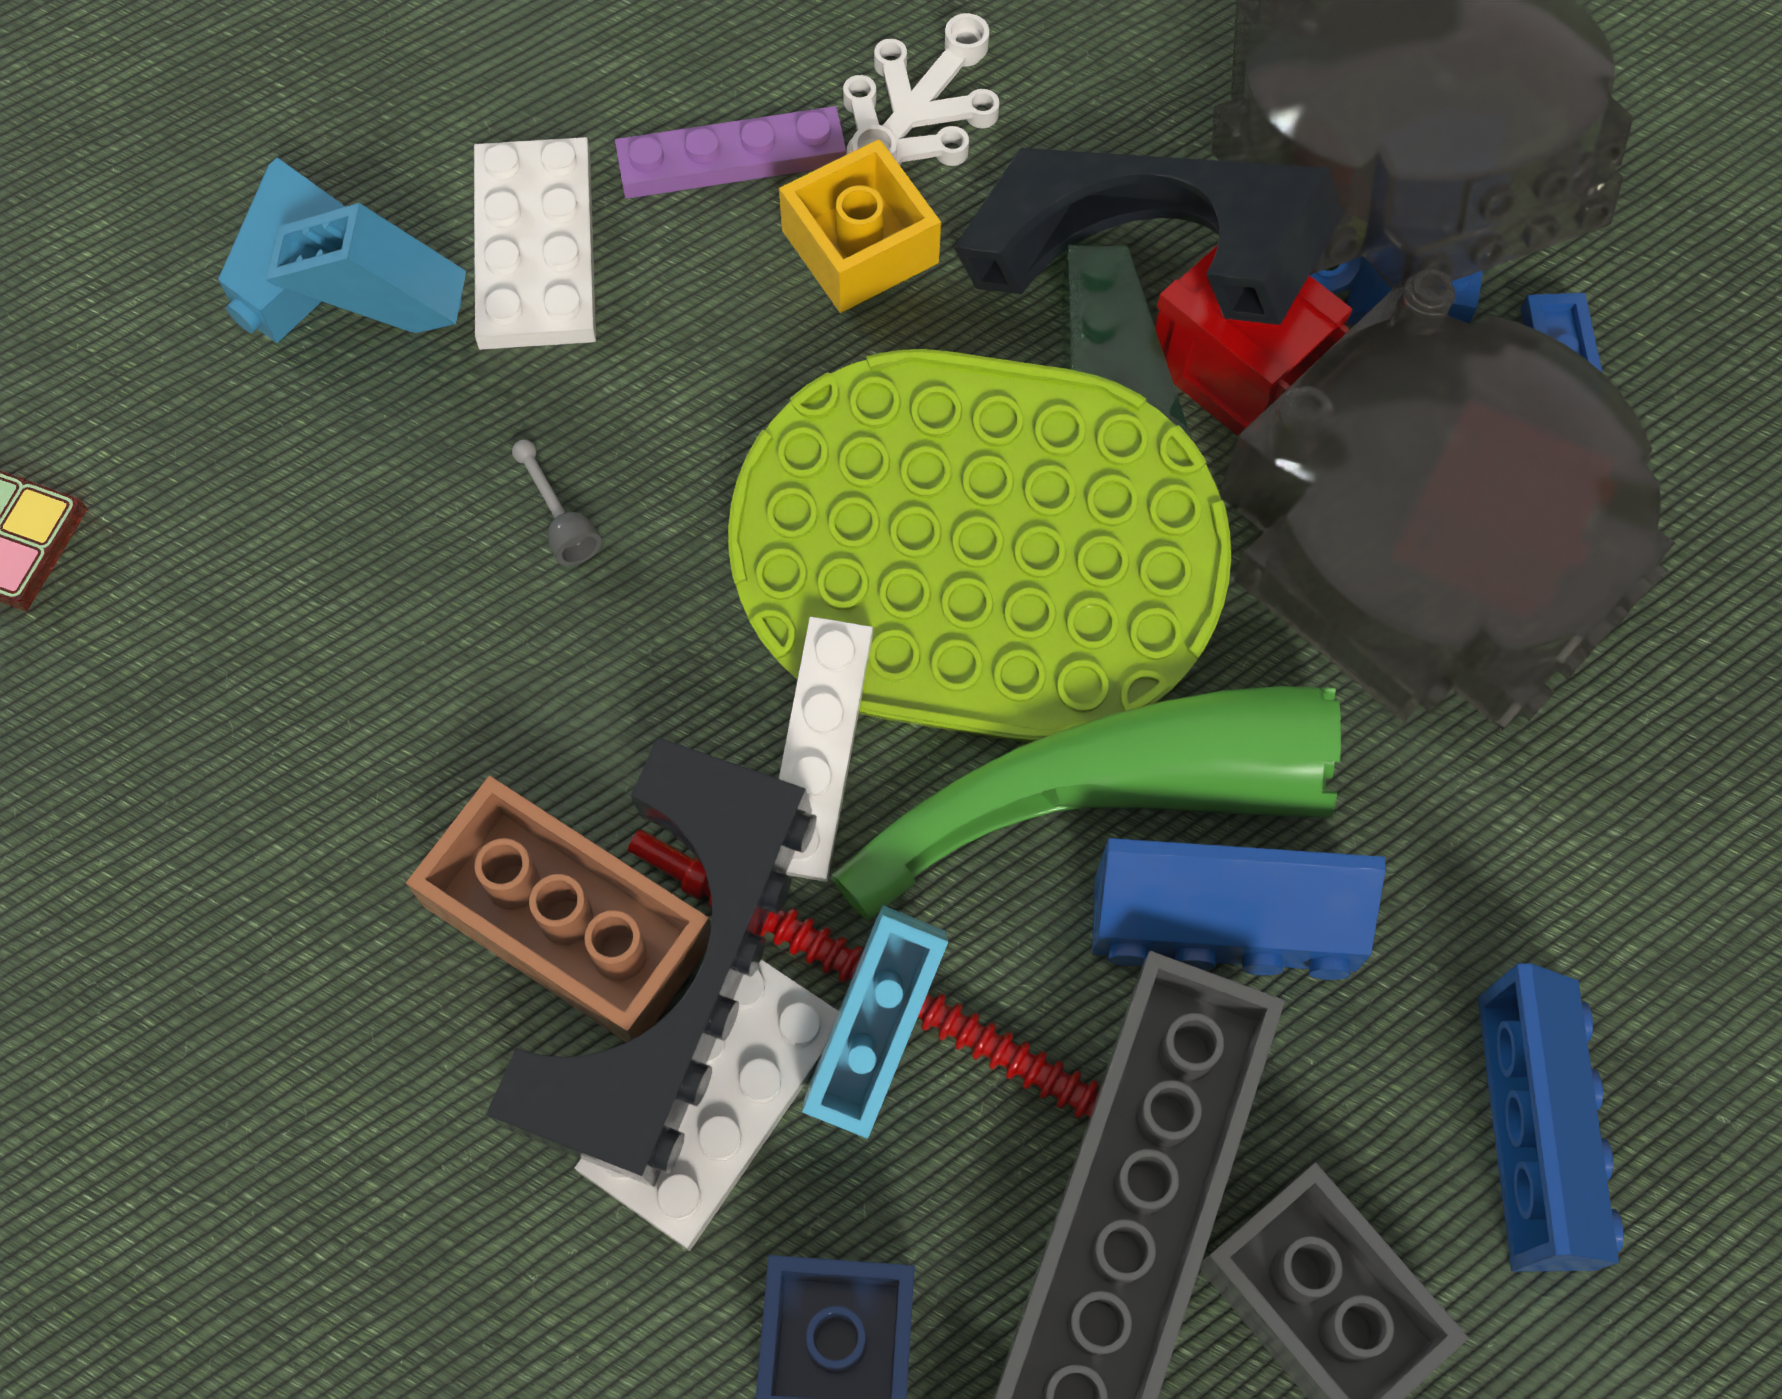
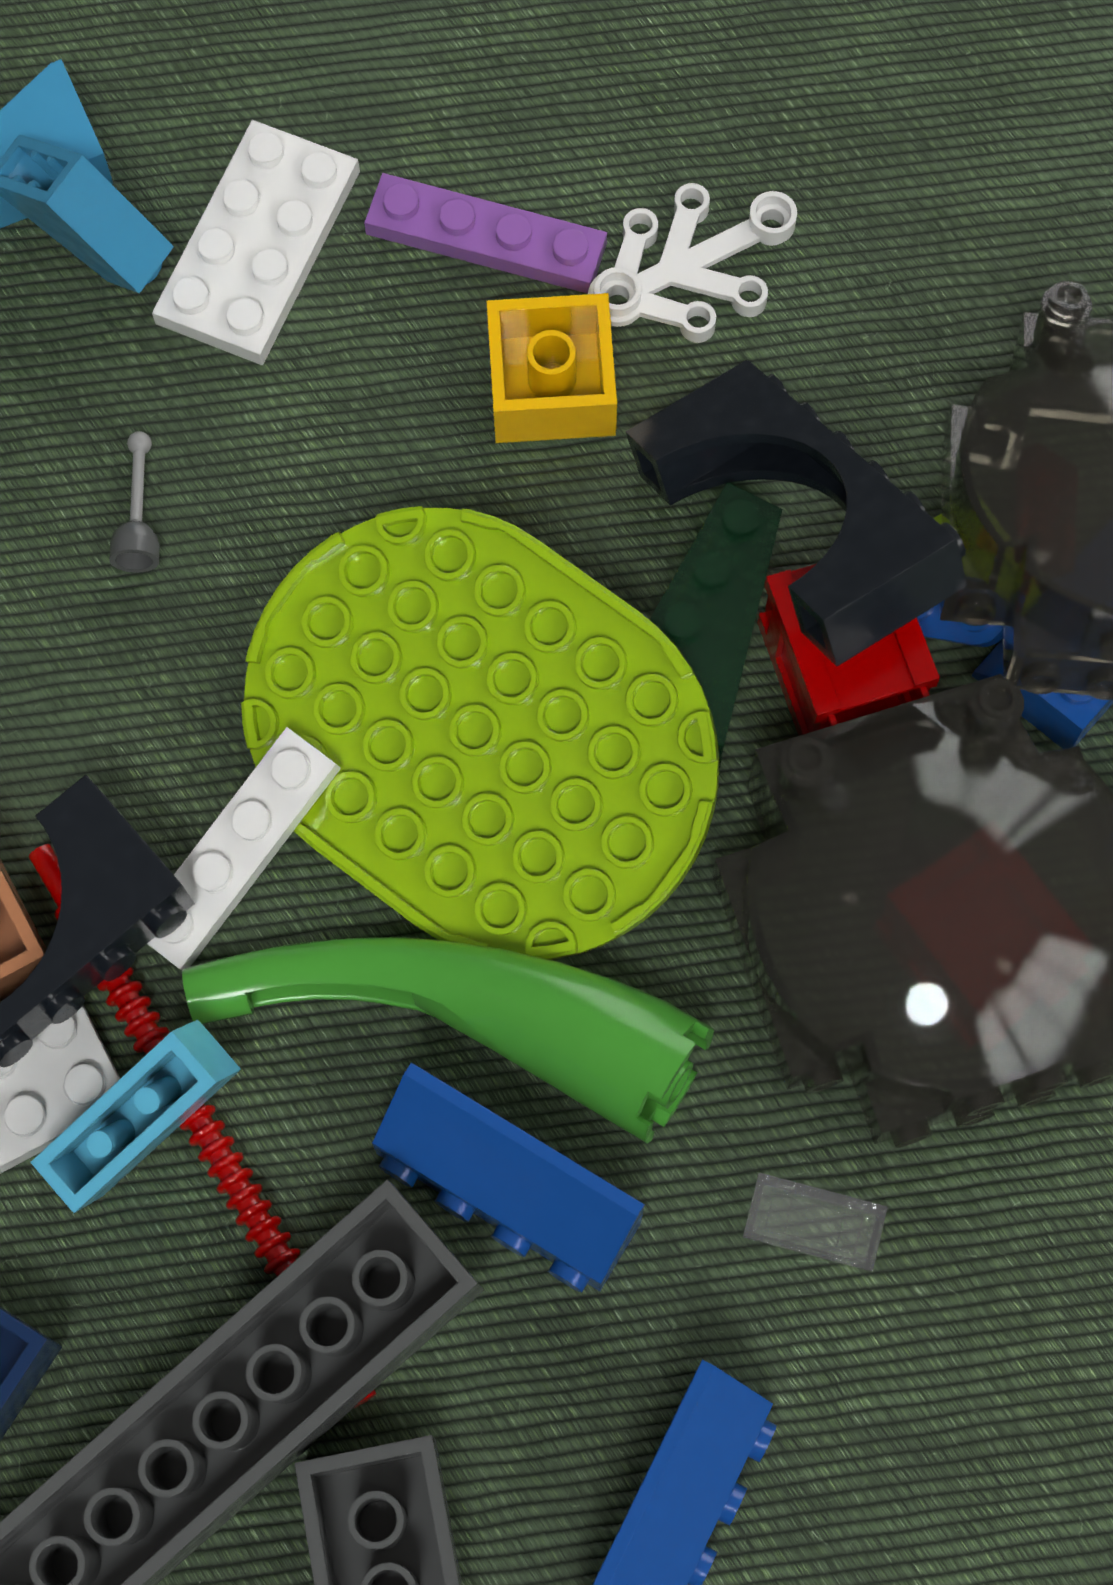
camera: 30 degrees right, 5 degrees up
(1501, 816) = (815, 1222): none -> clear tile

